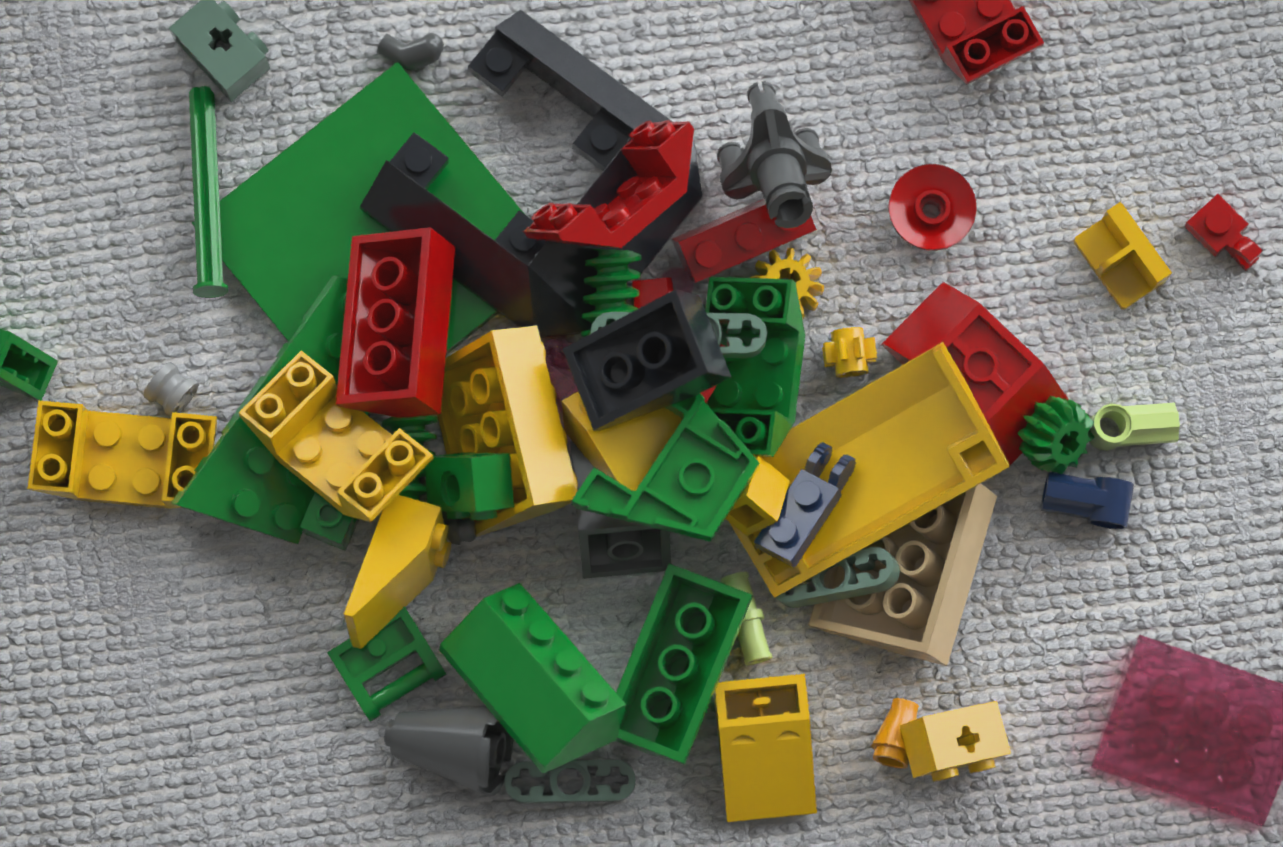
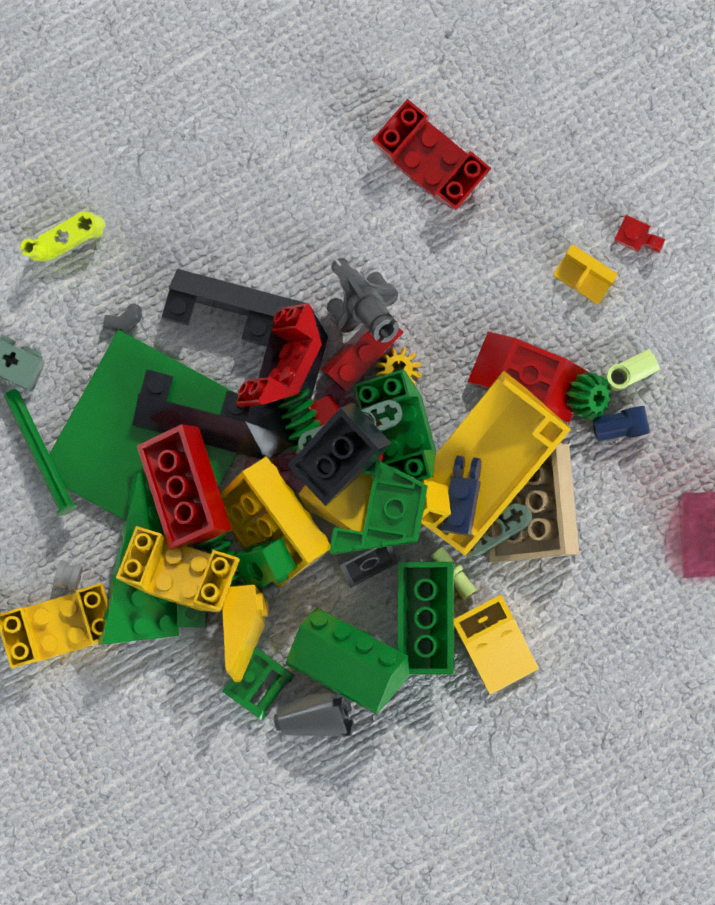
camera: 15 degrees left, 5 degrees up
(604, 791) = (413, 707): sand green beam -> none
(849, 352) = (450, 395): yellow gear -> none
(888, 743) = (566, 605): light orange cone -> none
(934, 186) = (466, 276): red dish -> none
(955, 740) = (601, 596): yellow brick -> none

